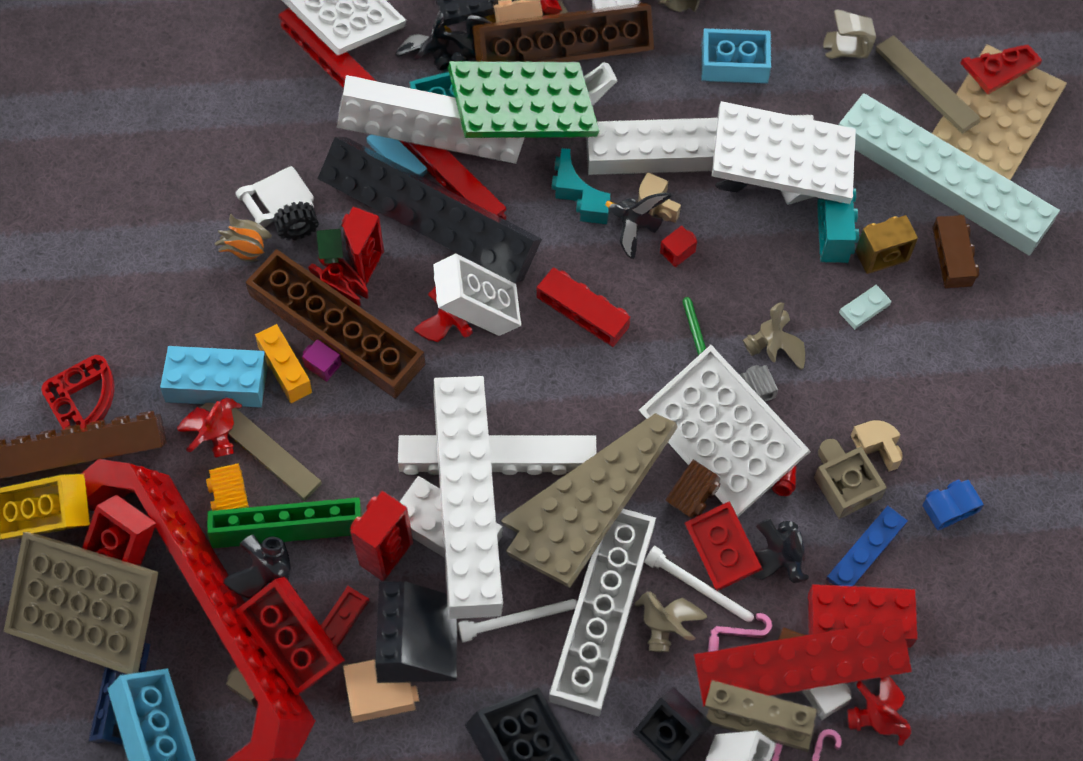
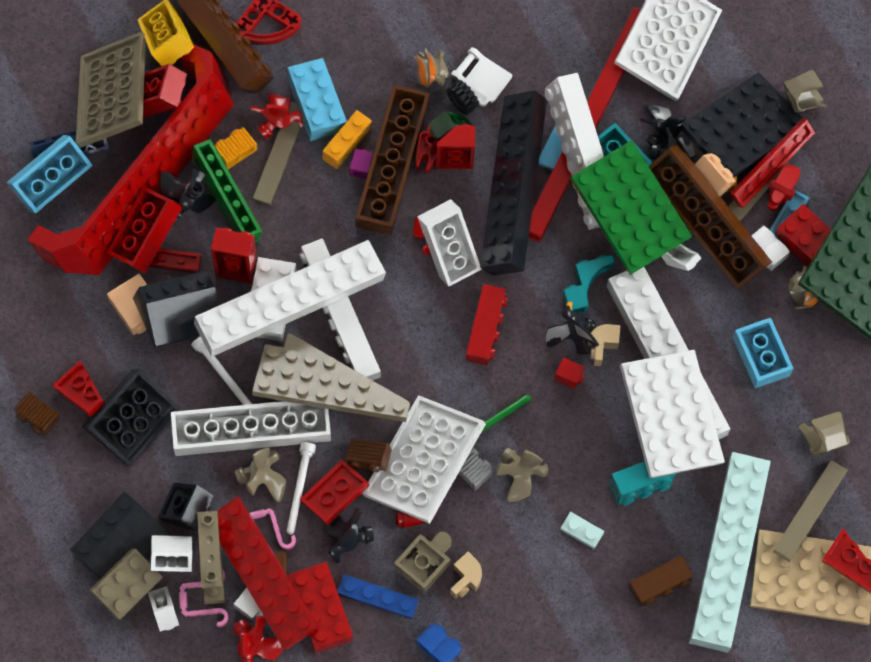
camera: 65 degrees right, 5 degrees up
(886, 244) = (638, 523): pearl gold brick -> none

